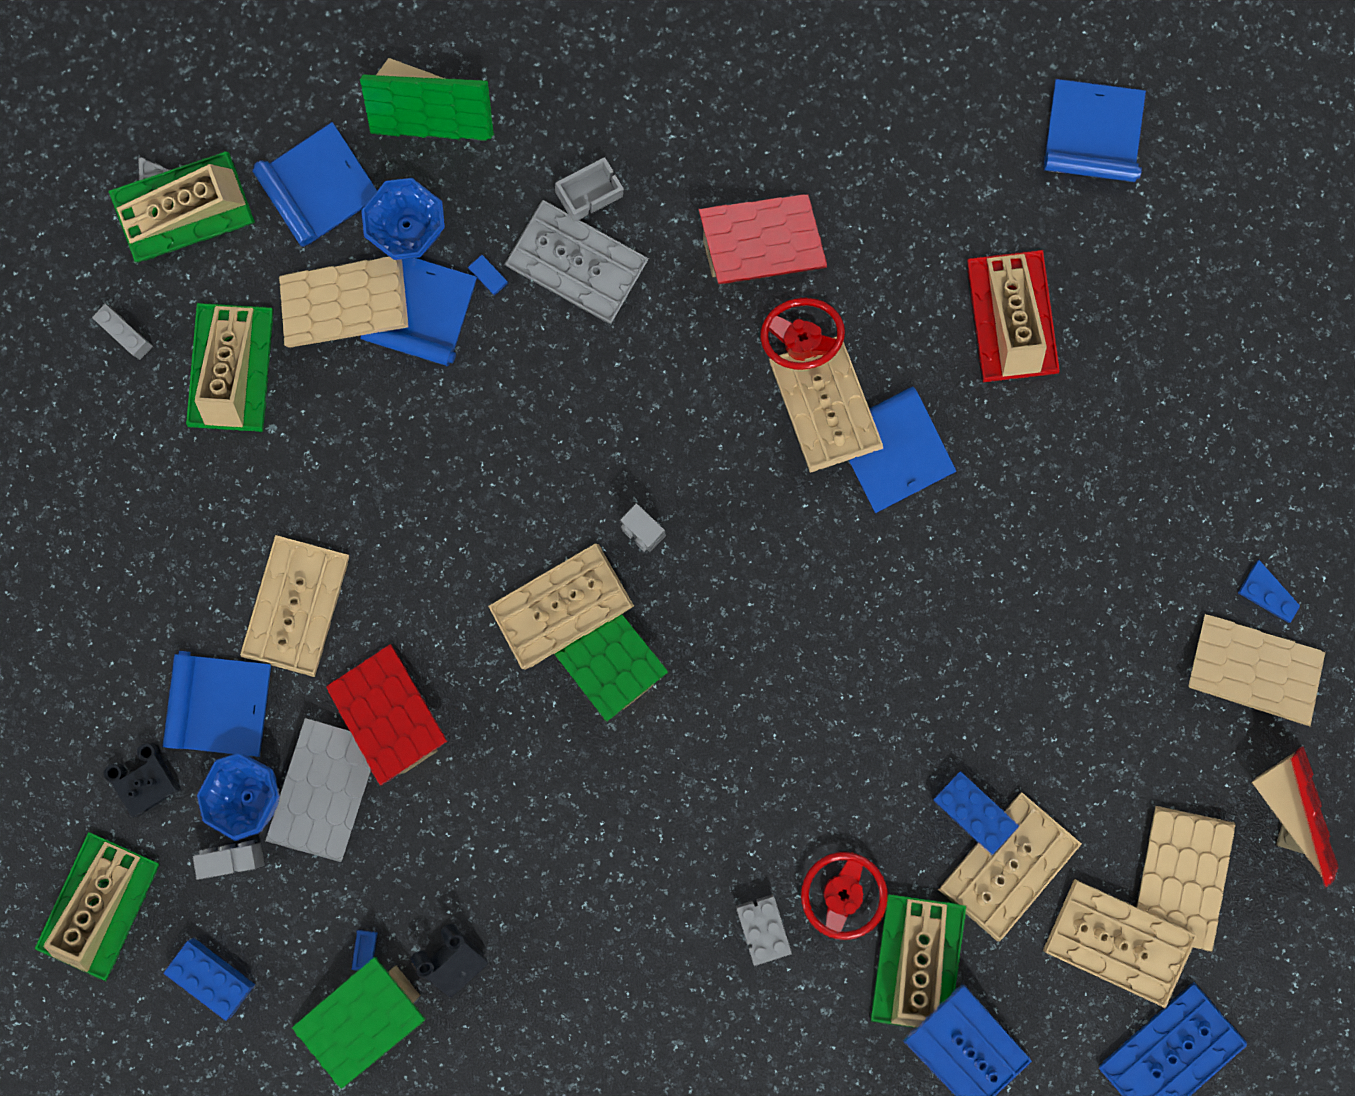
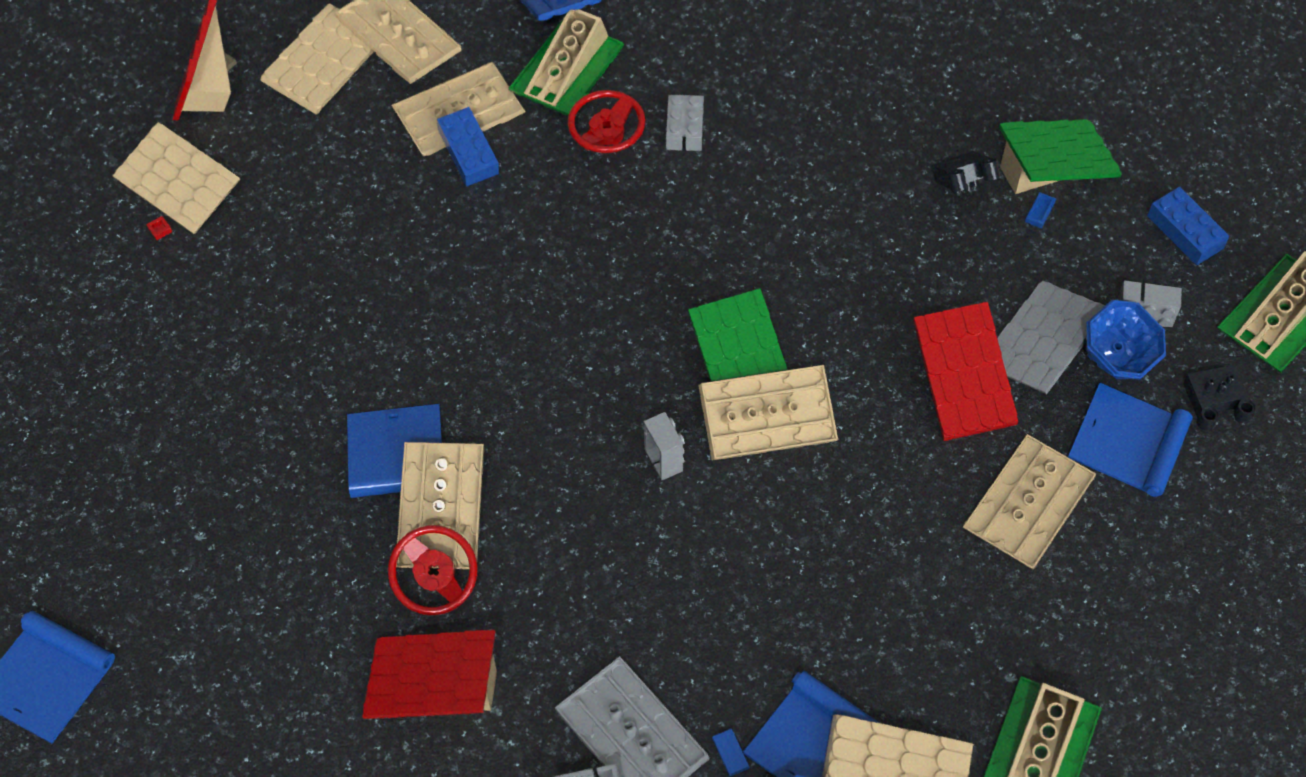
camera: 165 degrees left, 25 degrees down
(1013, 316) = (221, 530): piece -> none
(1242, 606) = (159, 228): none -> red plate
(1268, 593) = (131, 233): blue wing -> none

